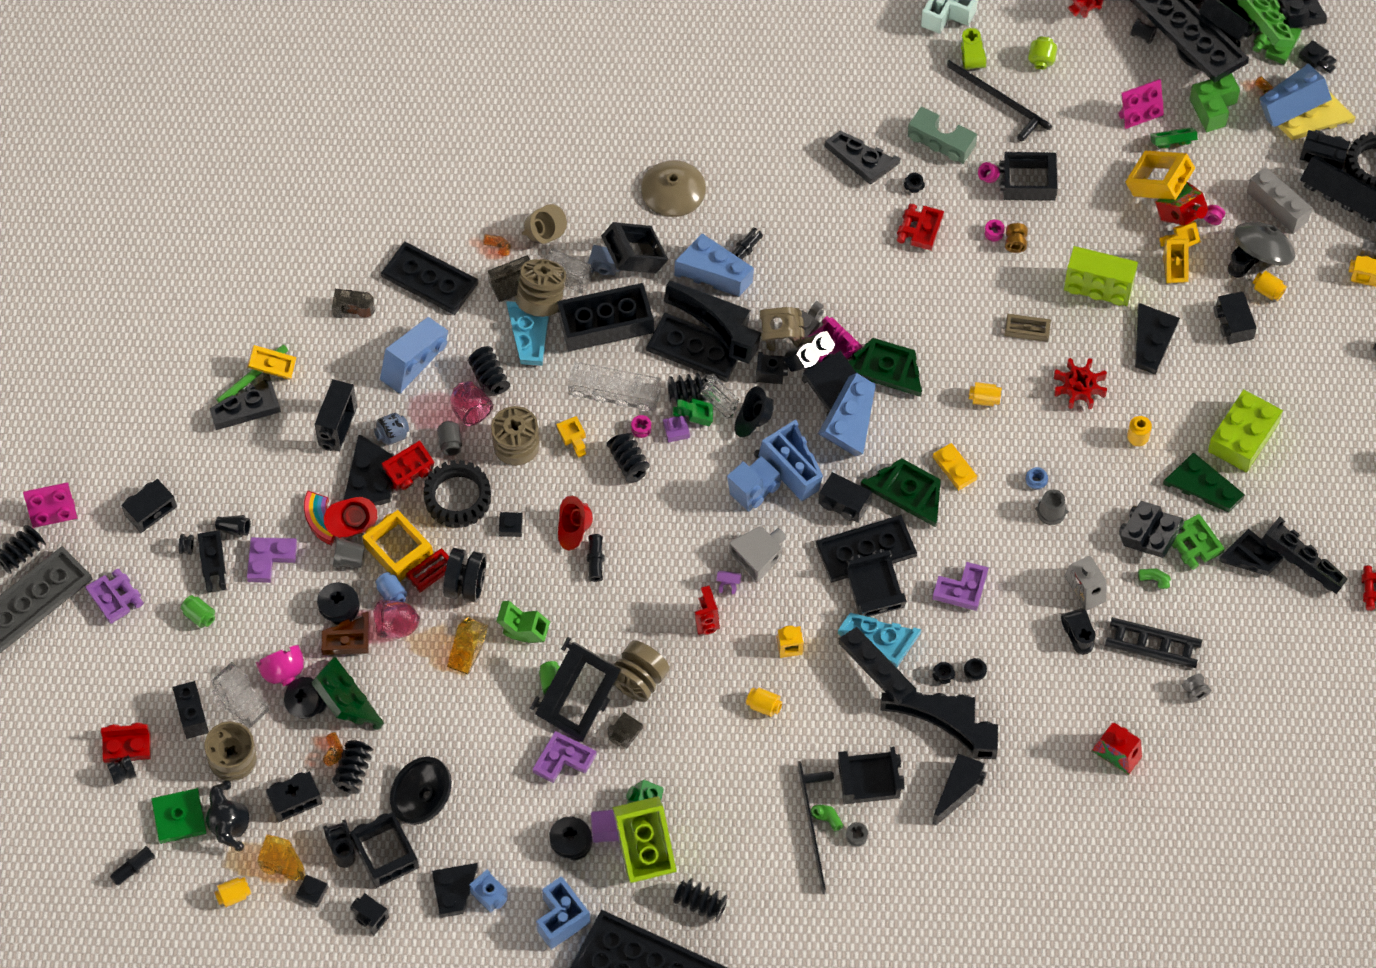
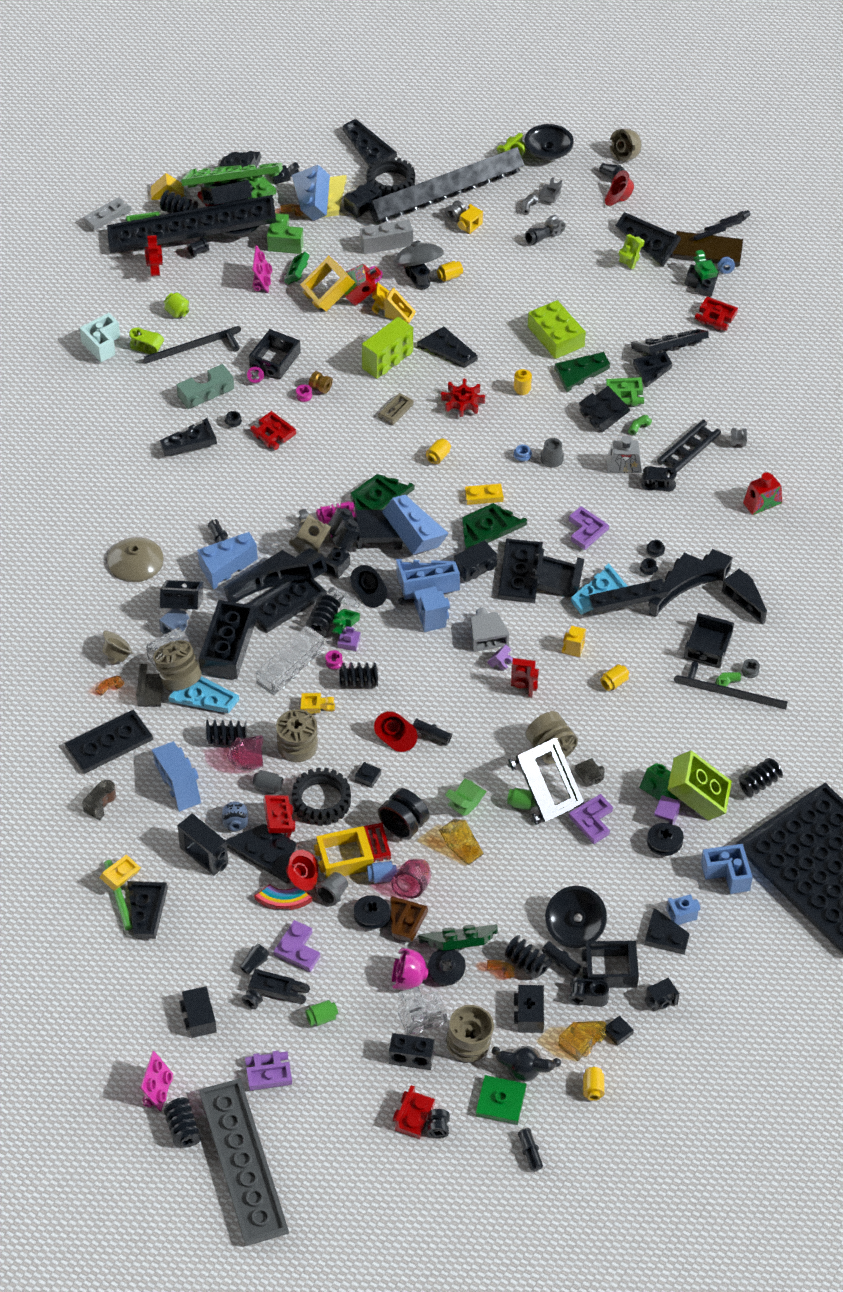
camera: 65 degrees left, 10 degrees down
(370, 800) = (561, 958): none -> black pin
(1235, 318) = (463, 297): black brick -> none

